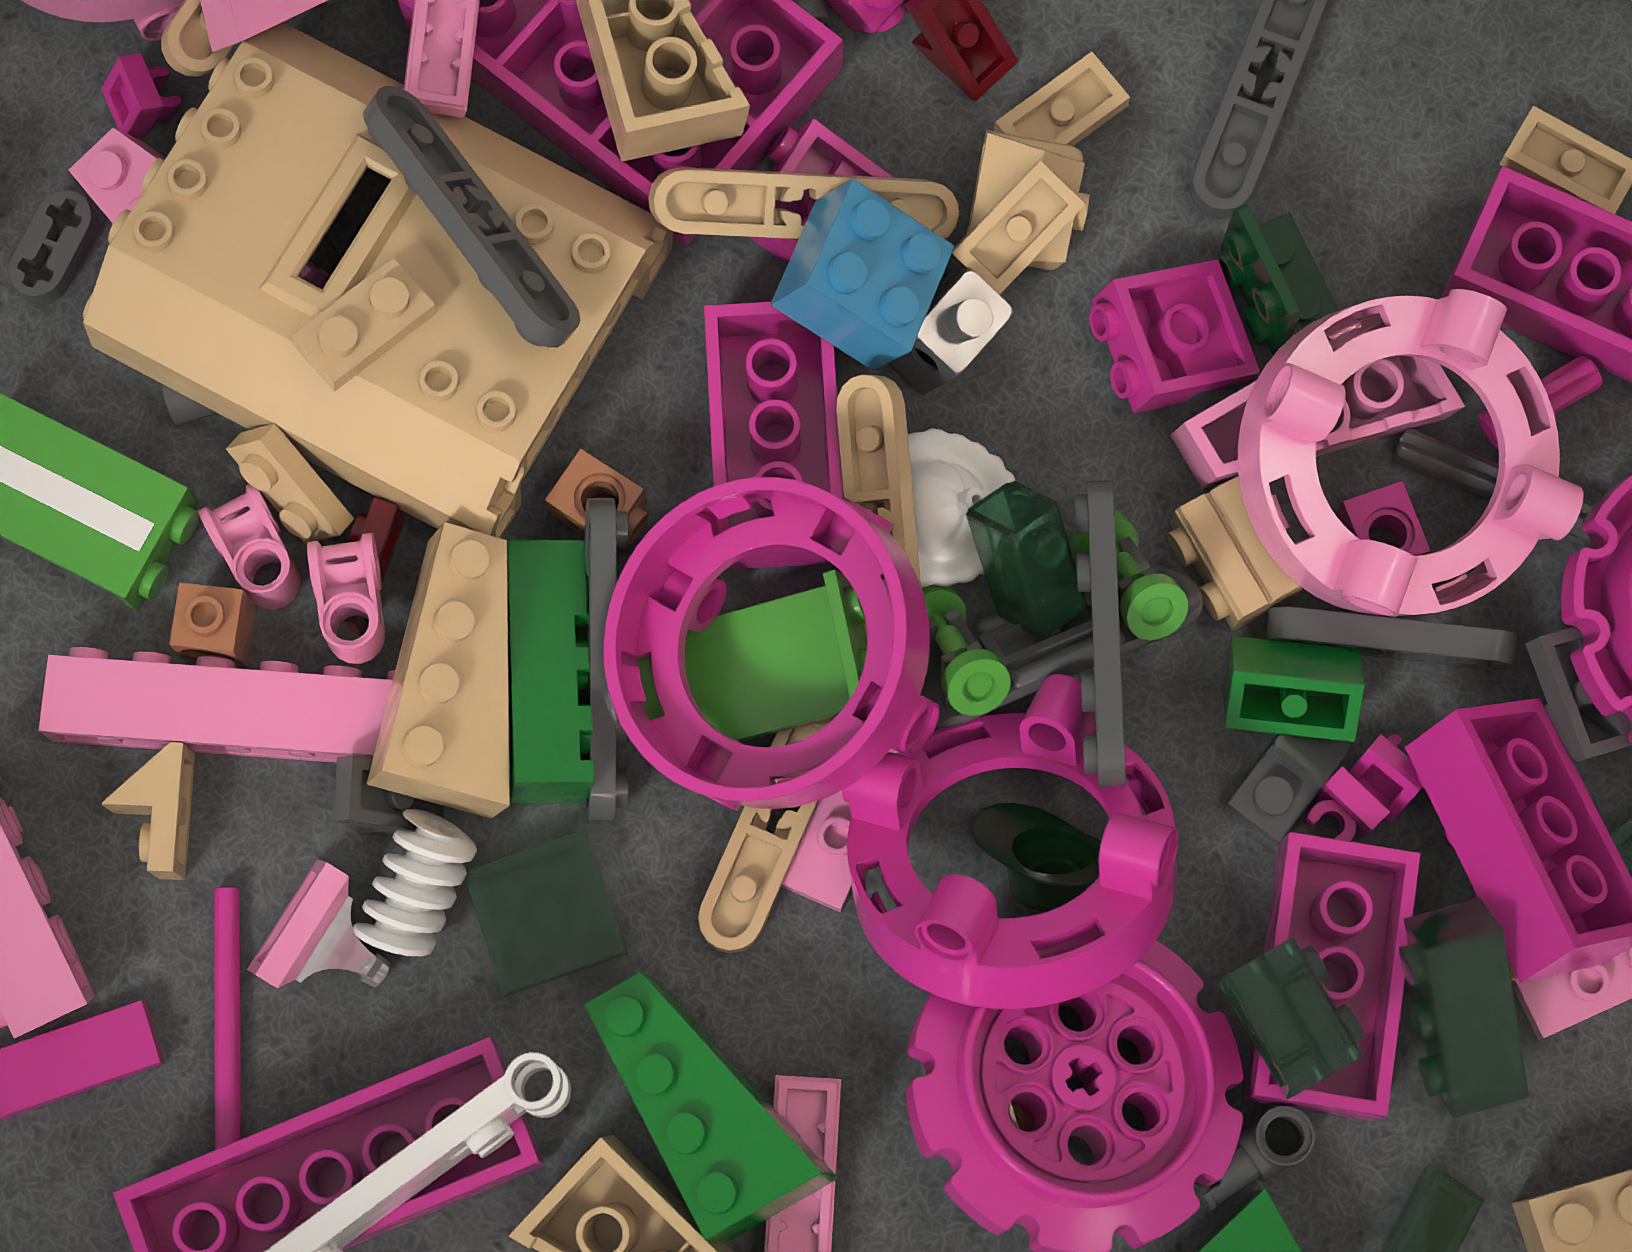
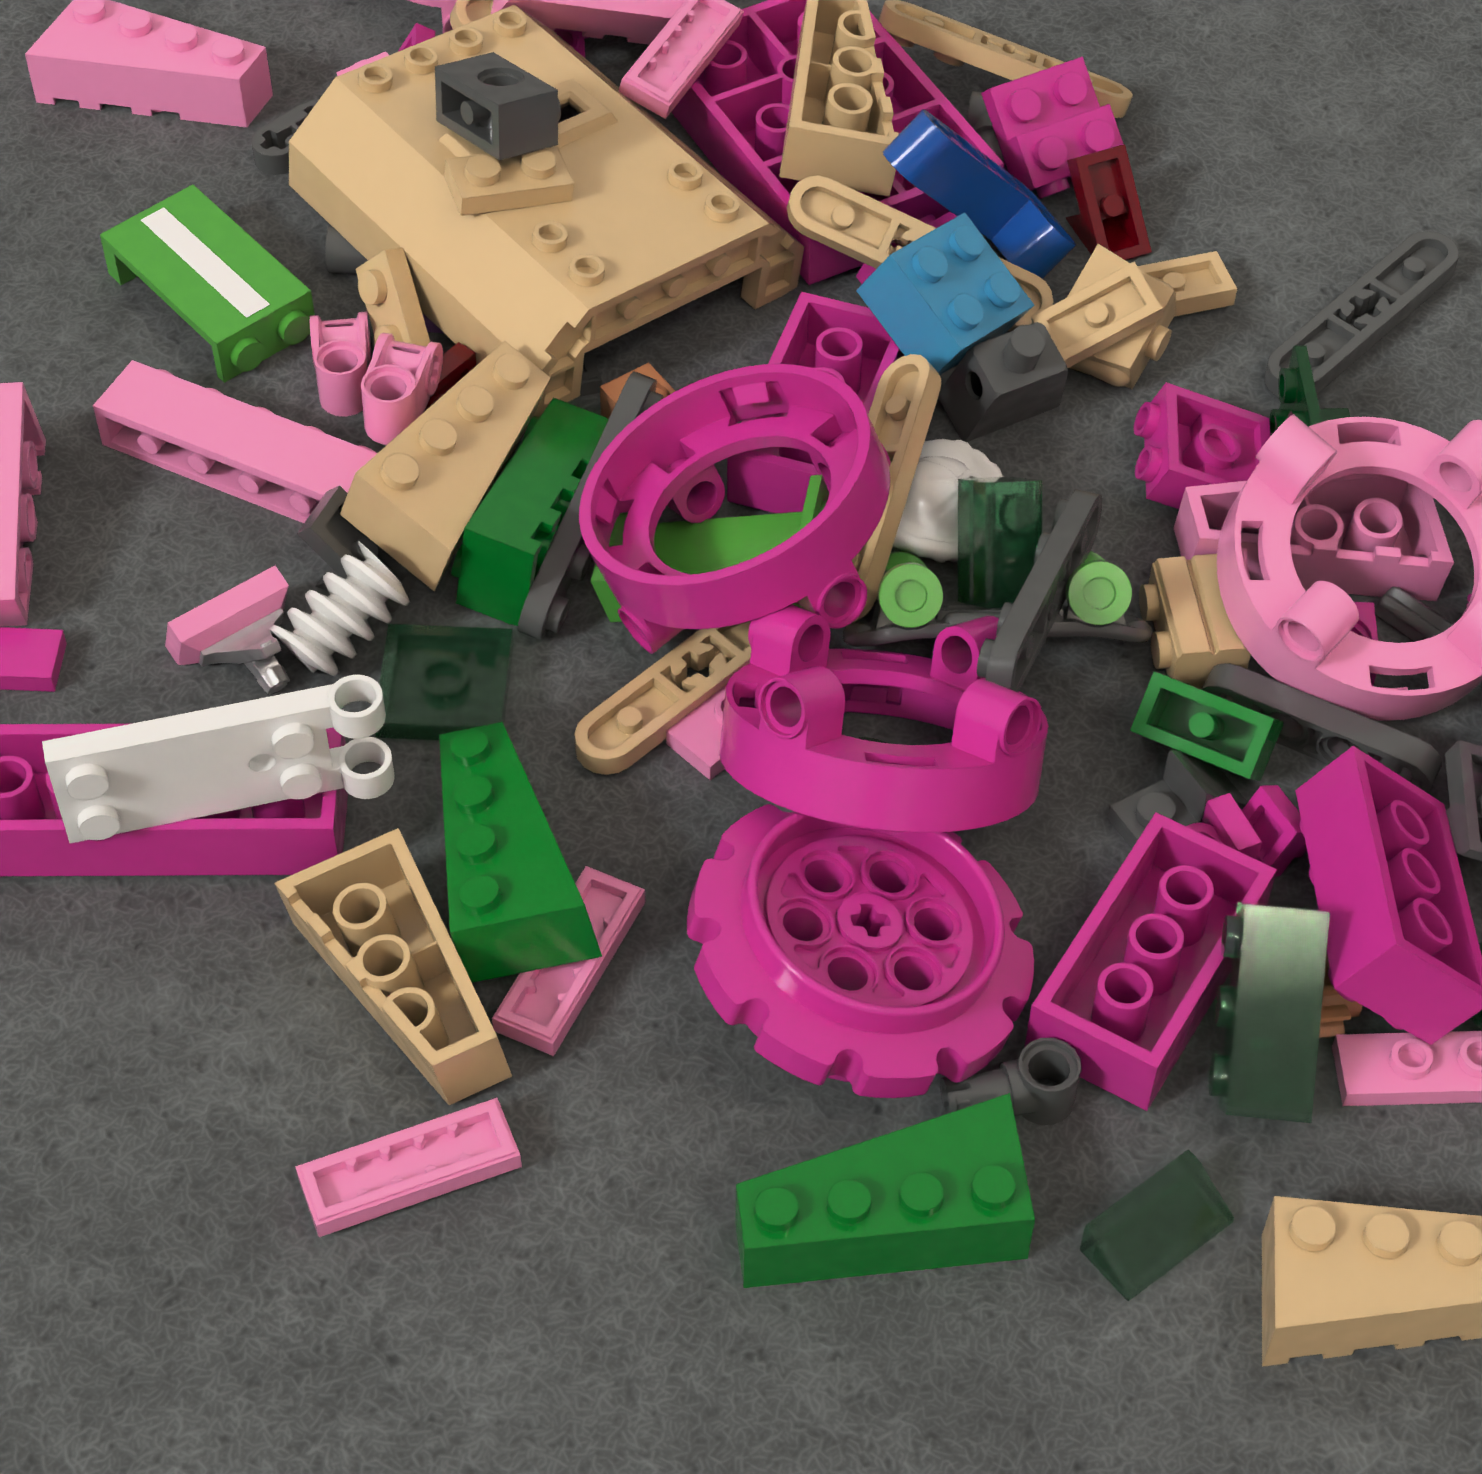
camera: 20 degrees right, 25 degrees down
(165, 793) = (160, 500): tan slope -> none
(212, 623) = (280, 383): nougat brick -> none
(227, 1016) = (139, 652): dark pink bar -> none
(317, 248) = (497, 105): none -> dark grey brick
(471, 217) = (634, 141): dark grey piece -> none
(841, 92) = (972, 183): none -> blue beam
(1293, 1017) = (1094, 938): clear green brick -> none

